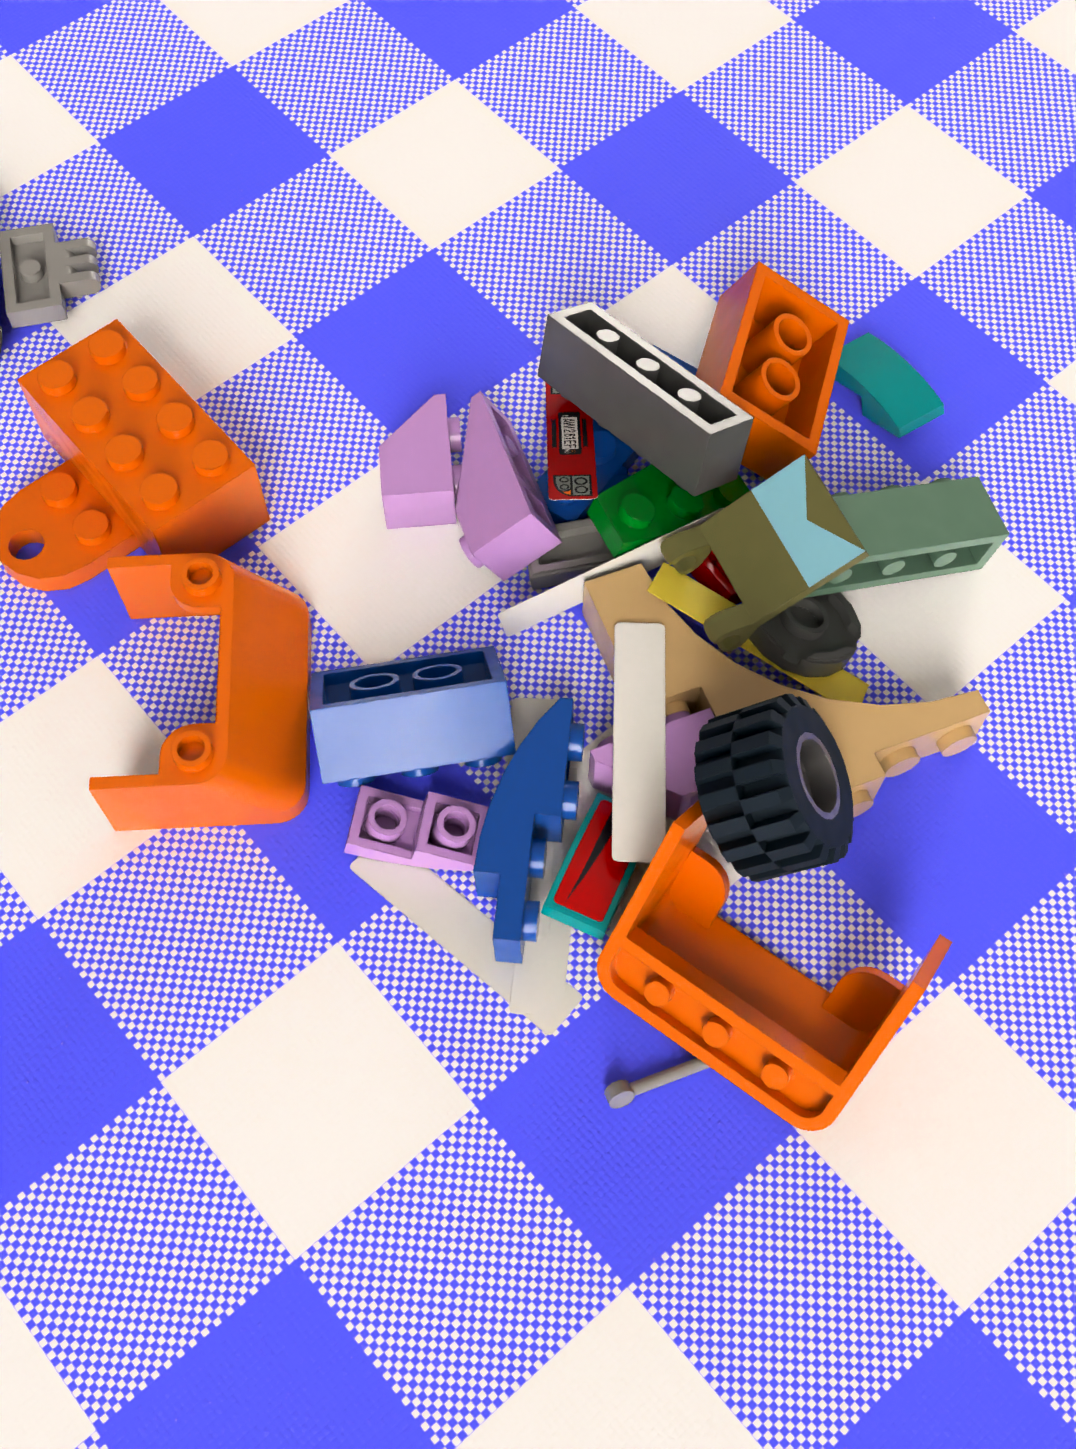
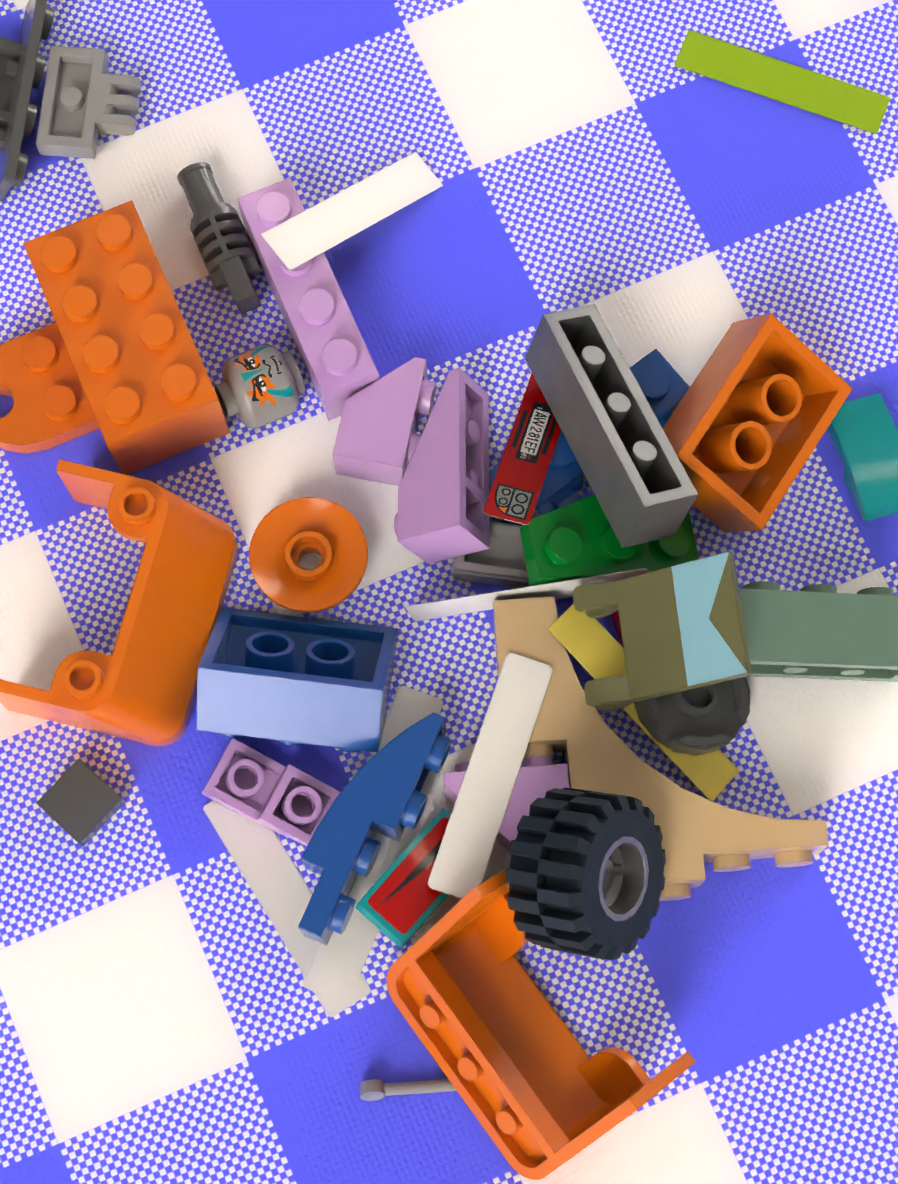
camera: 20 degrees right, 10 degrees up
(211, 352) = (220, 237): none -> dark grey hinge
(219, 895) = (80, 802): none -> dark grey tile
(292, 463) = (260, 386): none -> light grey head
(311, 375) = (309, 303): none -> lavender brick
(330, 292) = (351, 211): none -> white sticker
(382, 576) = (304, 528): none -> orange dish
(682, 123) = (782, 81): none -> lime sticker

